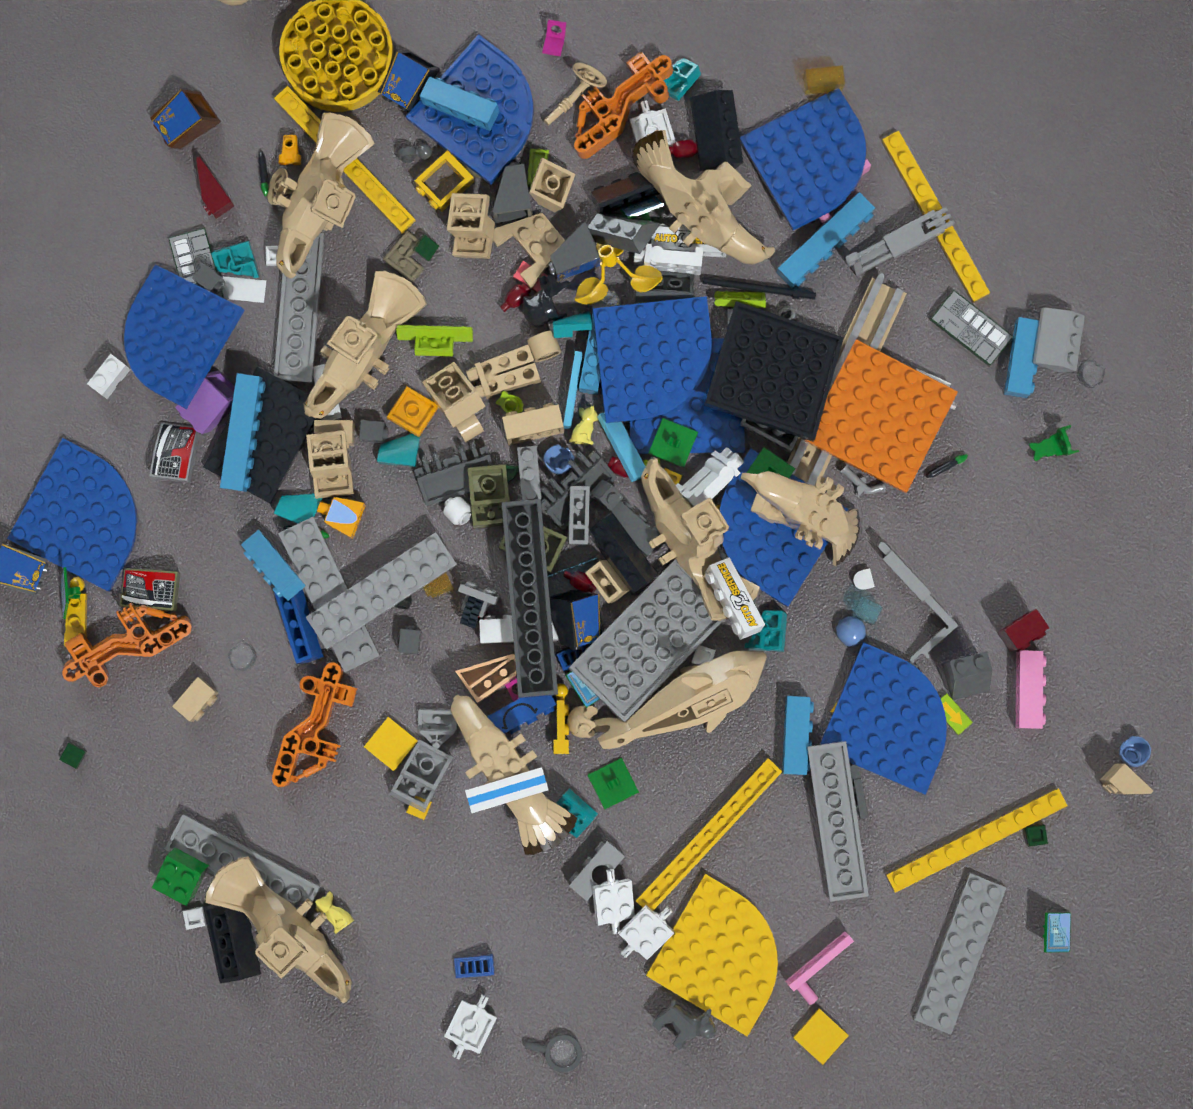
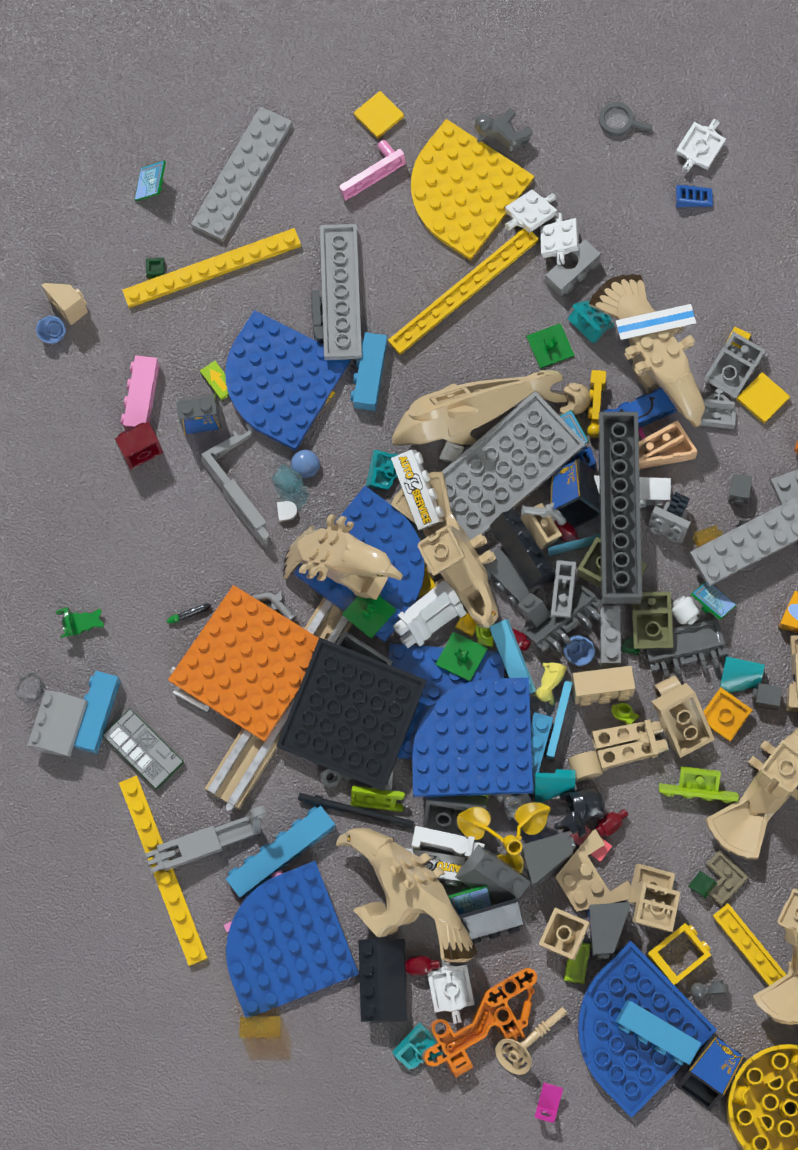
camera: 165 degrees left, 10 degrees down
(429, 519) = (713, 600): none -> piece
(601, 591) = (544, 512): none -> light grey piece

